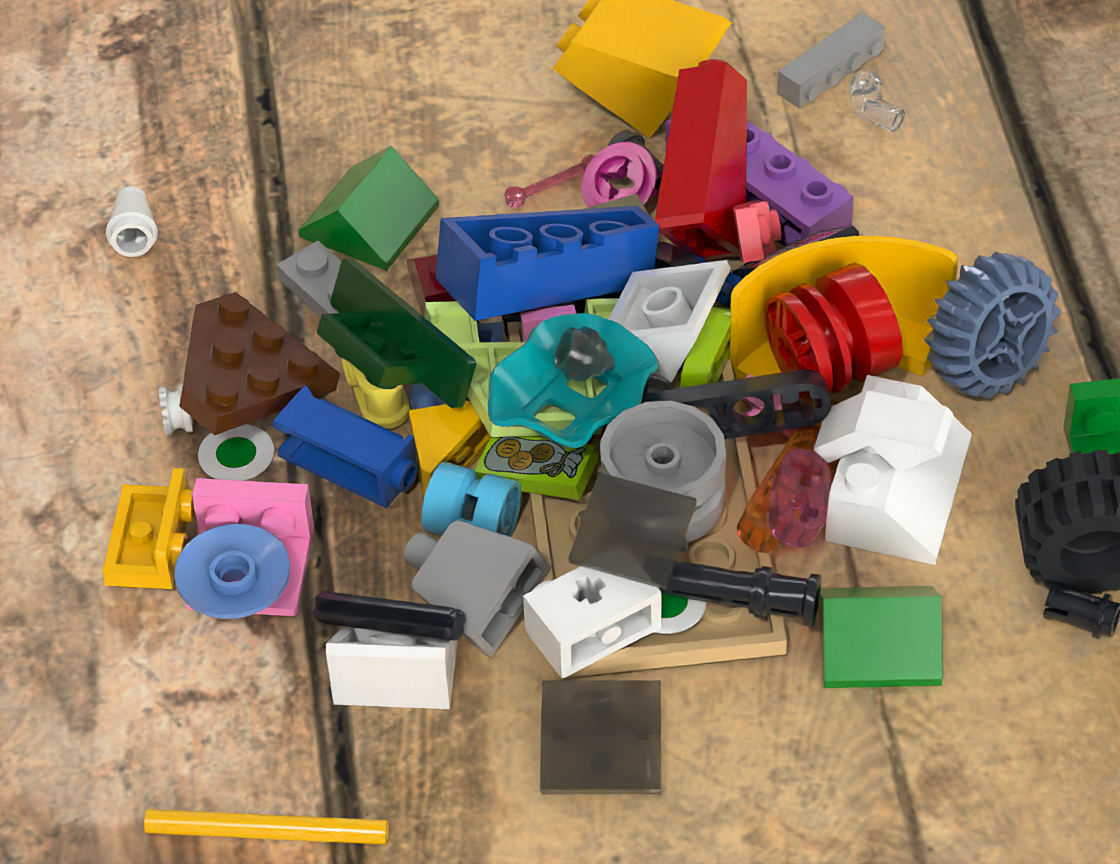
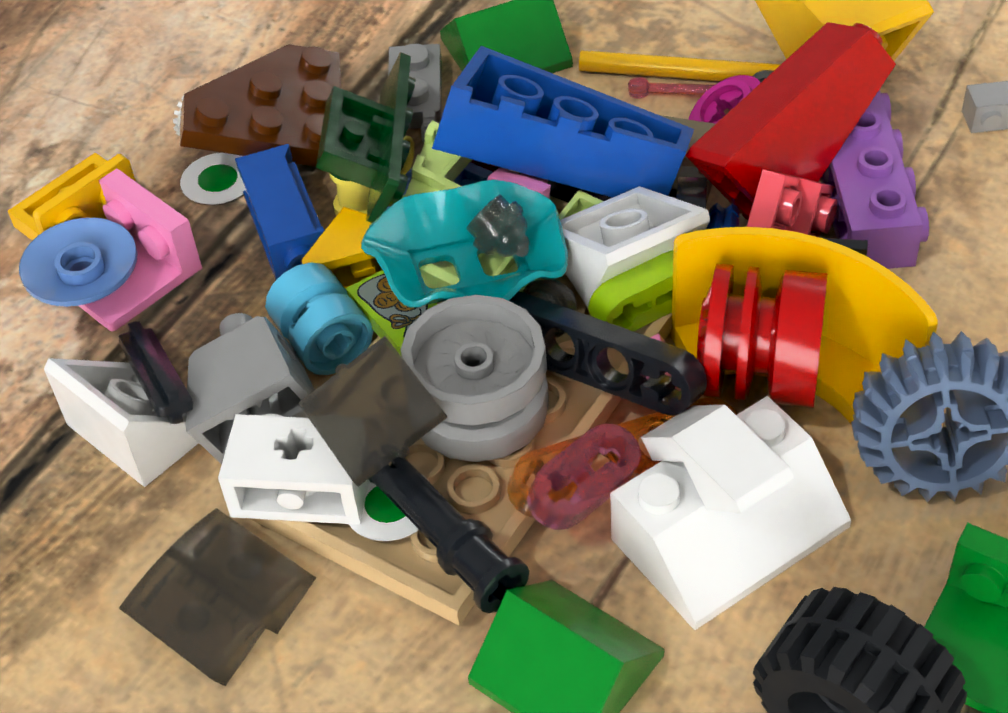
camera: 40 degrees right, 0 degrees up
(532, 163) = (667, 66): none -> yellow bar

